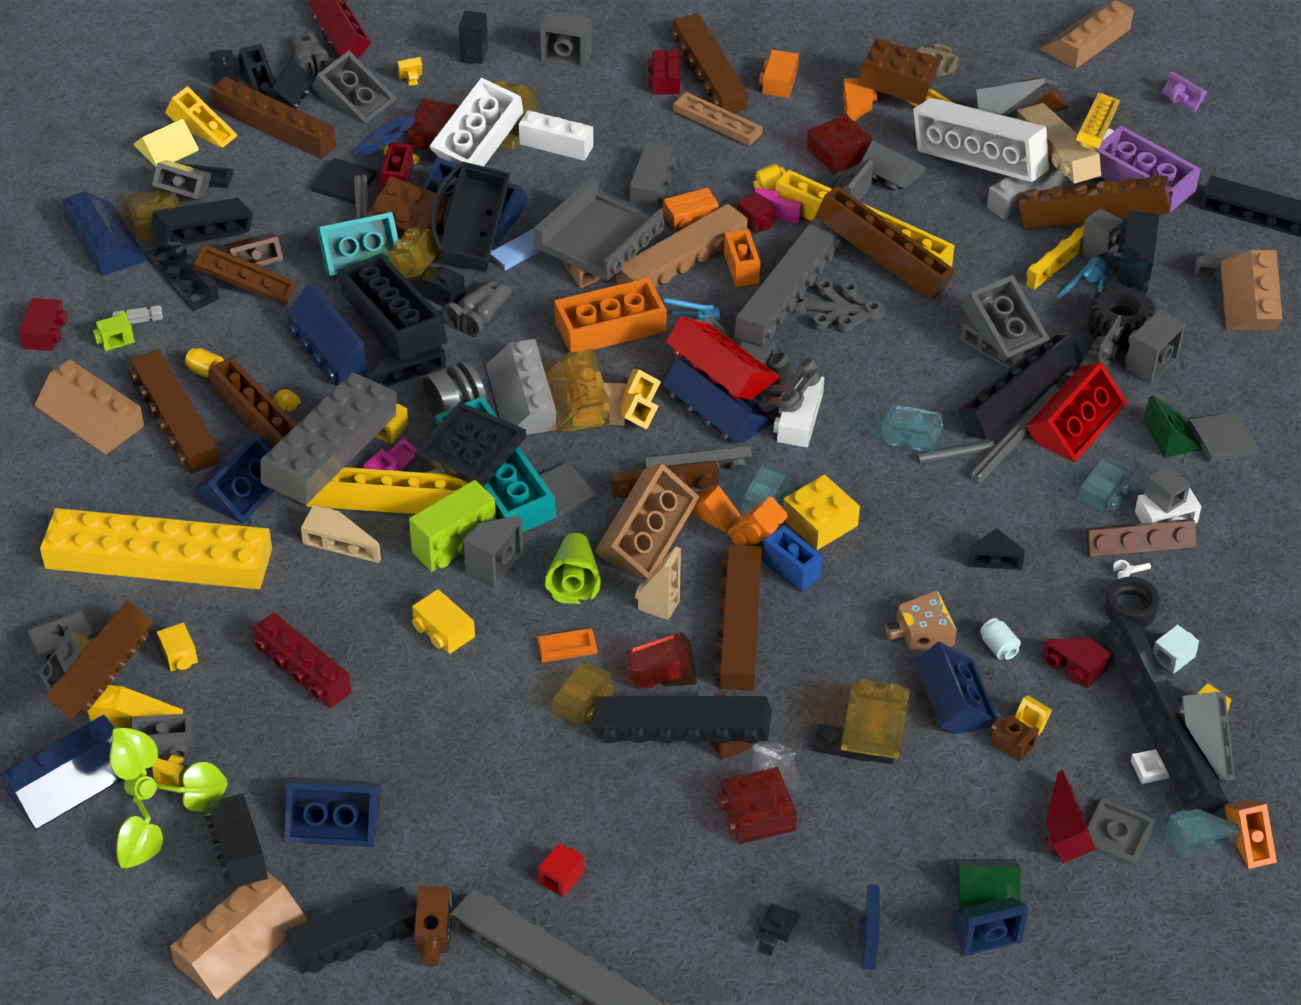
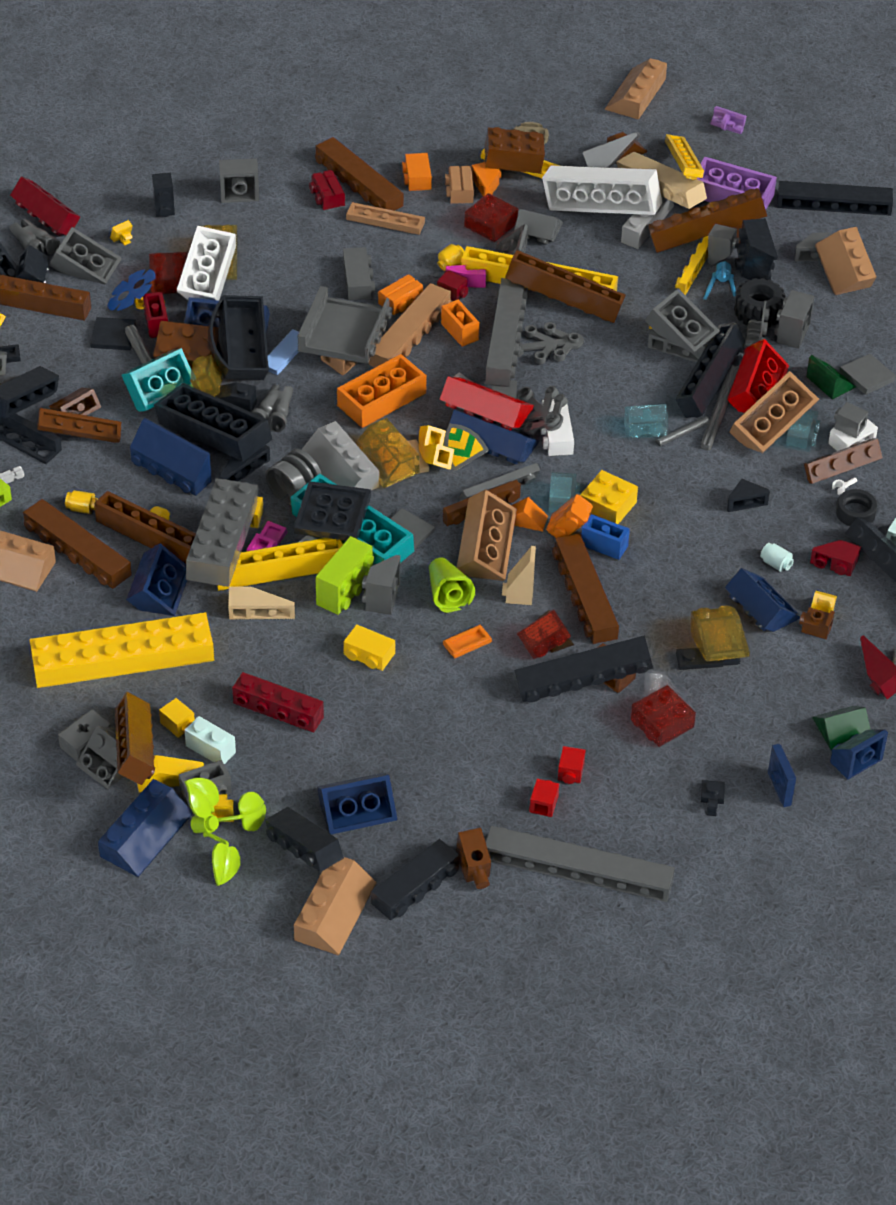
camera: 20 degrees left, 0 degrees up
(198, 686) = (209, 740): none -> light aqua brick
(556, 135) = (267, 259): white brick -> none
(578, 695) = (499, 672): clear yellow brick -> none
(615, 837) = (571, 765): none -> red brick
(675, 404) = (466, 445): none -> sticker
(704, 311) = (450, 370): dark azure plant -> none
(822, 98) = (460, 184): none -> medium nougat brick
(923, 623) = (718, 559): medium nougat torso -> none
(1072, 456) = (773, 413): none -> medium nougat slope

